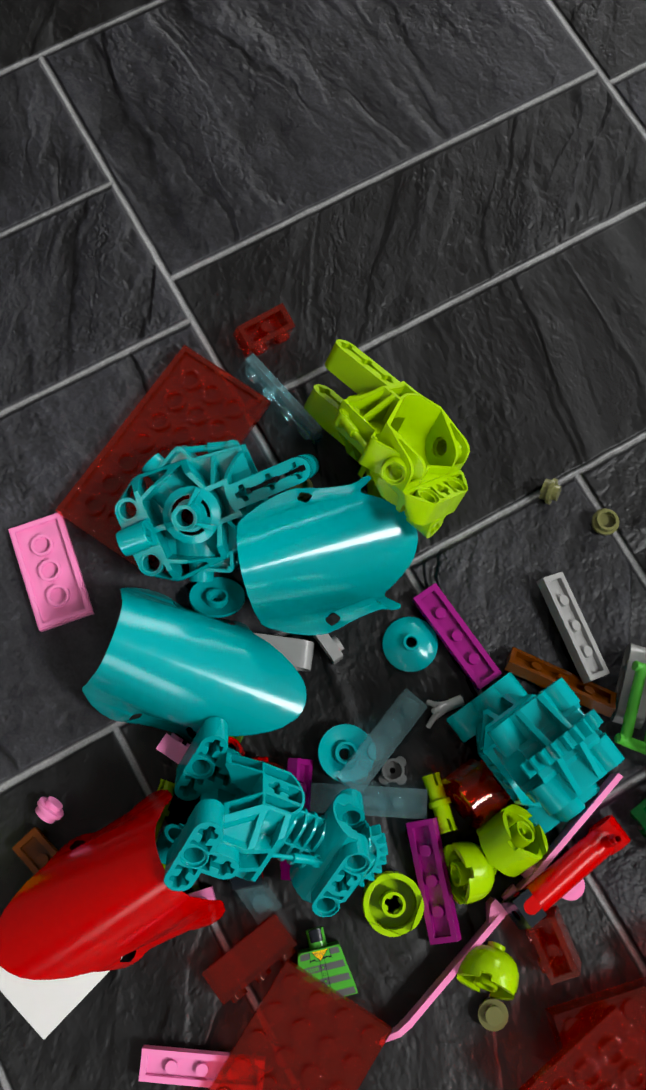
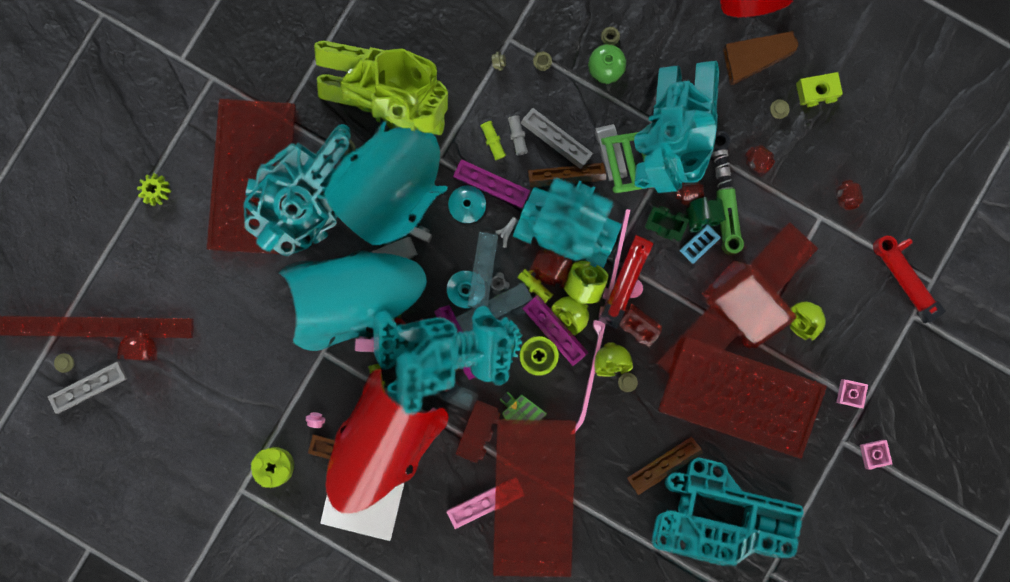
camera: 25 degrees left, 10 degrees up
(36, 396) = (147, 186): none -> lime gear
(50, 572) = (227, 286): bright pink tile -> none
(217, 597) = (337, 244): teal dish -> none
(264, 330) = (263, 60): clear red brick -> none
(289, 406) = (310, 101): clear light blue plate -> none
(488, 583) = (493, 140): none -> lime pin
(523, 594) = (517, 135): none -> light grey pin

